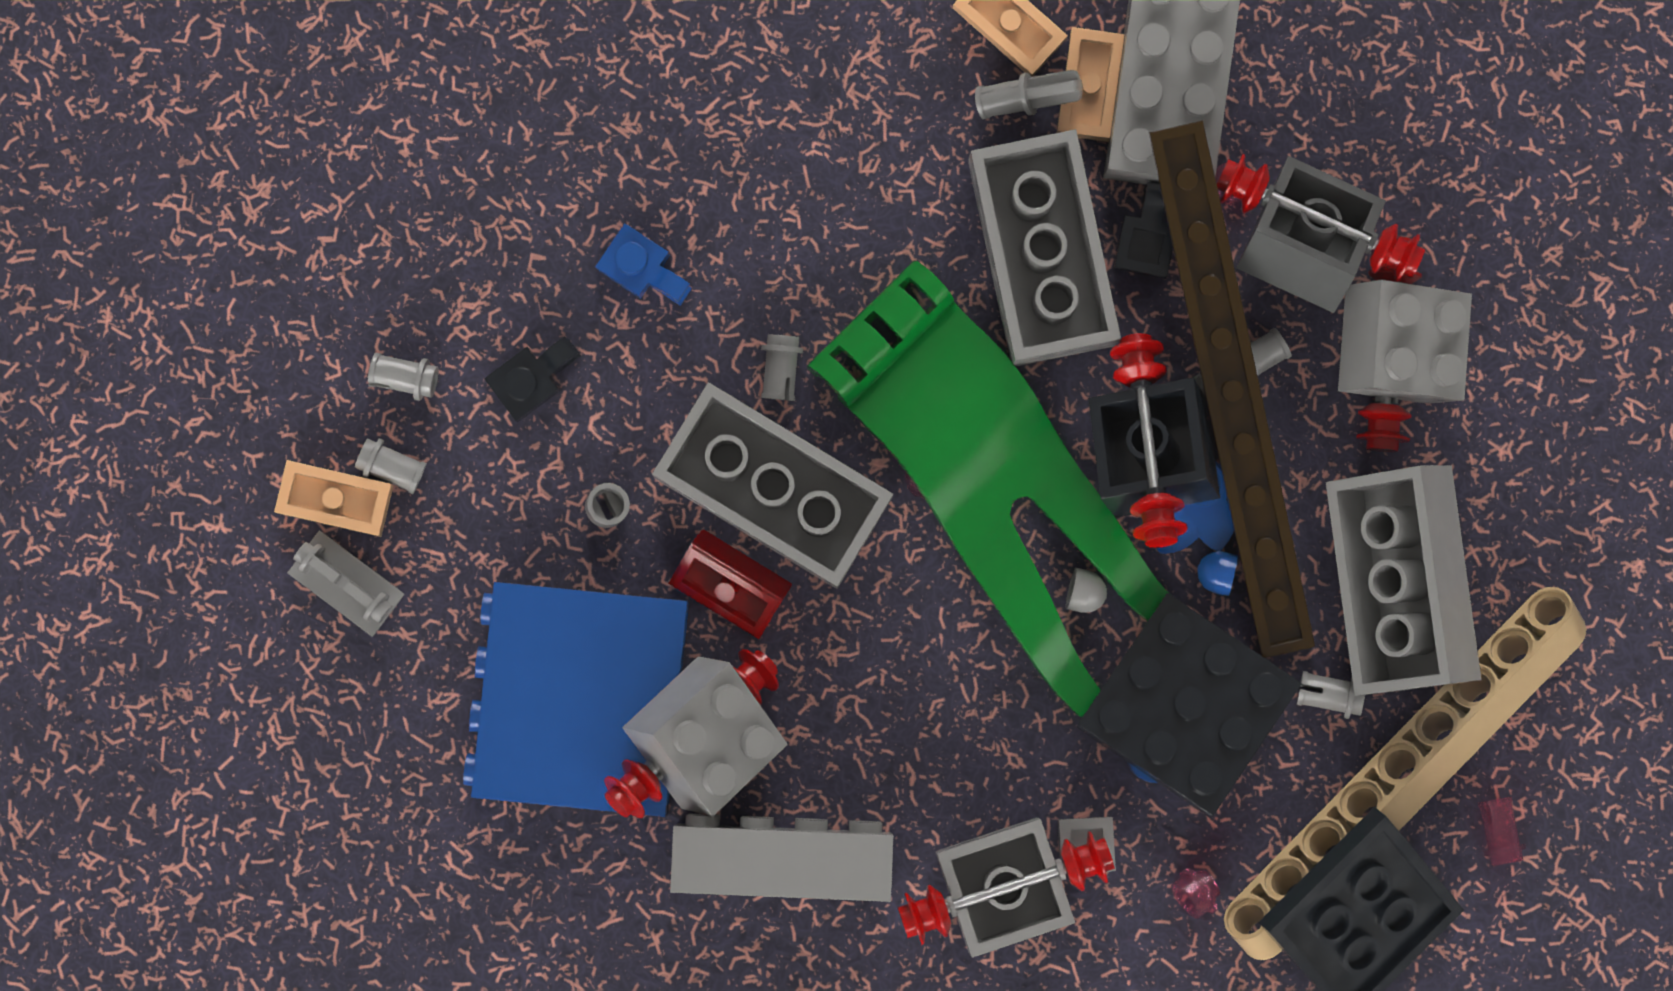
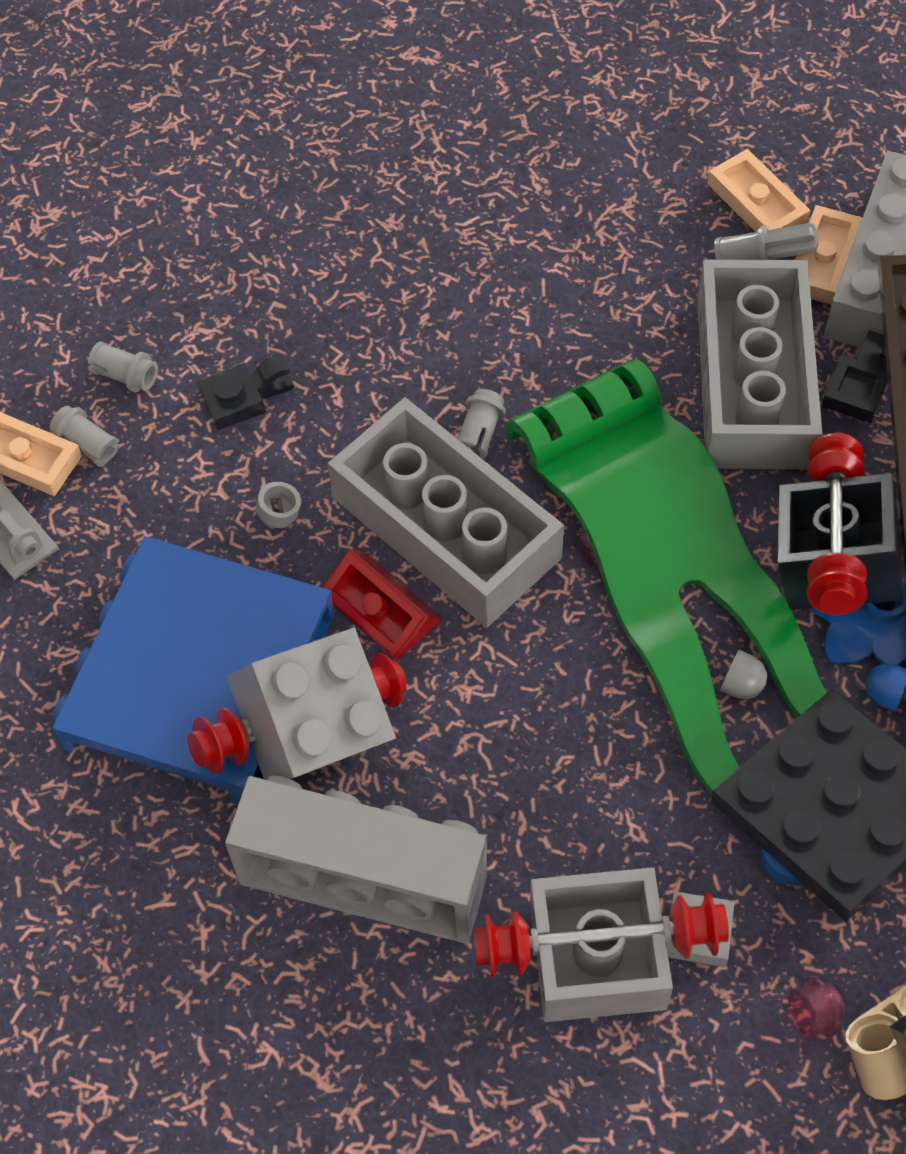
camera: 20 degrees right, 25 degrees down
(638, 263) = (371, 321): blue plate -> none

